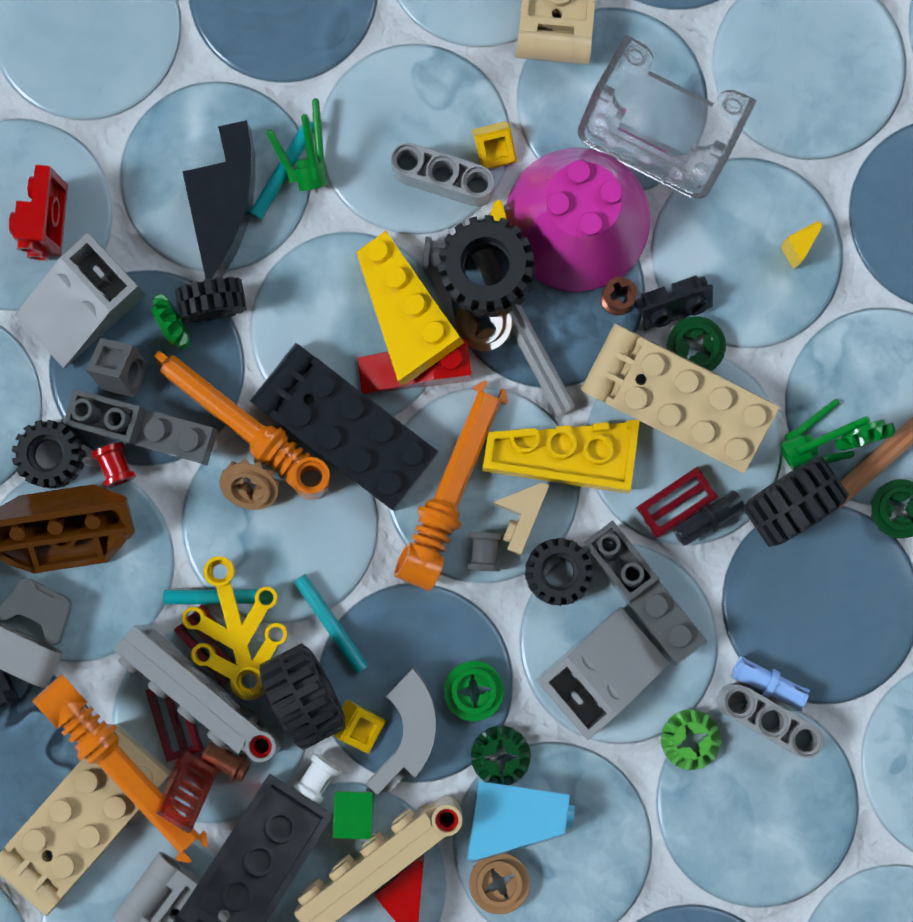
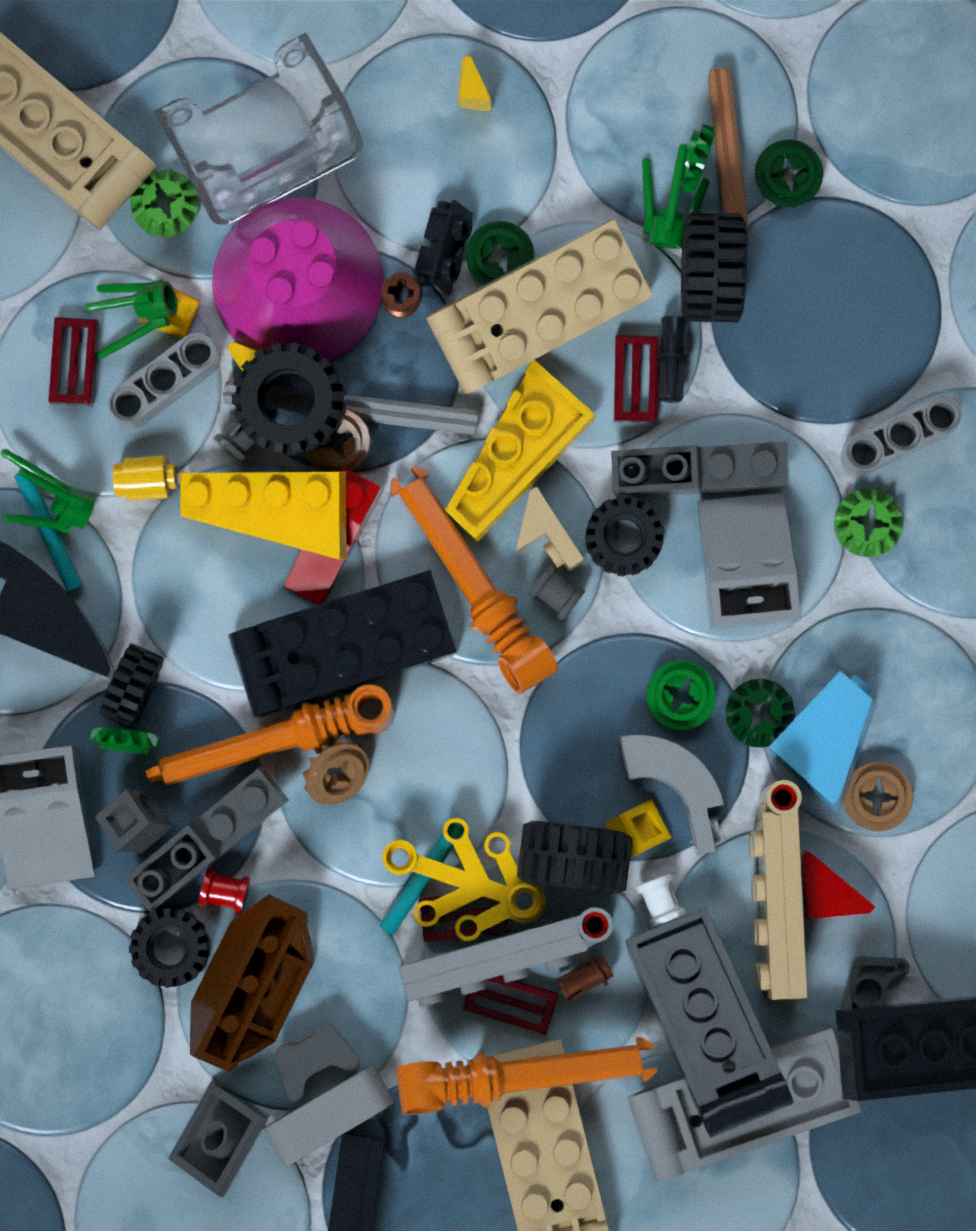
camera: 55 degrees left, 0 degrees up
(199, 774) = (583, 1020): clear red slope -> none
(331, 623) = (522, 787): teal bar -> none
(353, 814) = (718, 887): green panel -> none
(365, 209) = (145, 478): none -> yellow brick
(409, 123) = (71, 397): none -> dark red tile
(490, 124) = (151, 301): none -> green plant
(550, 91) = (182, 210): none -> bright green gear
(770, 683) = (867, 411): light blue pin -> none

